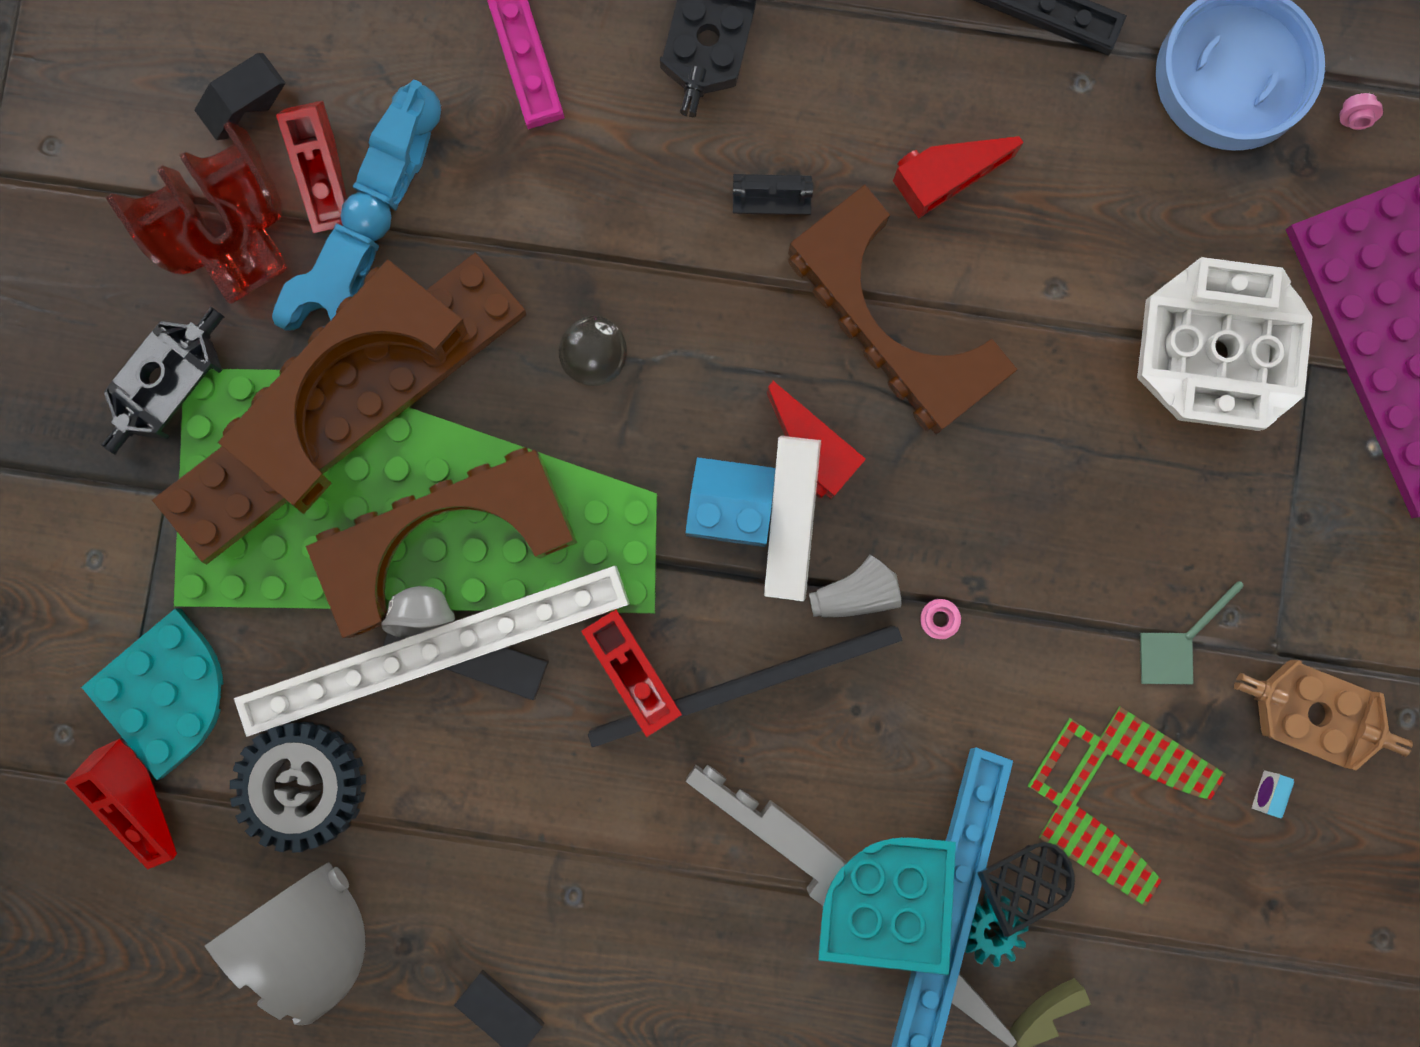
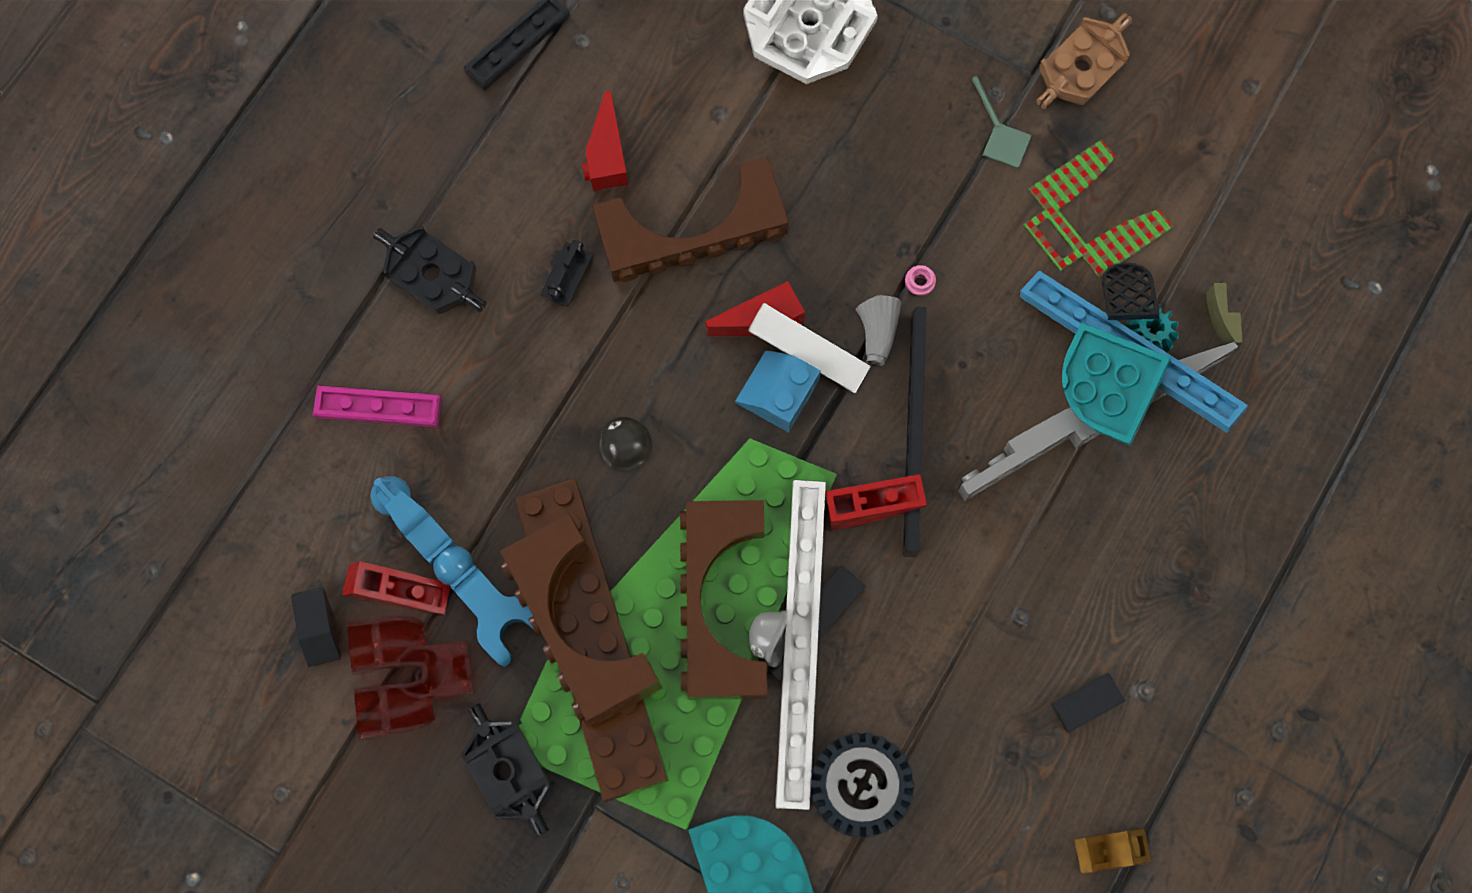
camera: 70 degrees left, 10 degrees down
(297, 947) = (981, 821): light grey brick -> none
(1273, 794) = (1126, 113): tile -> none

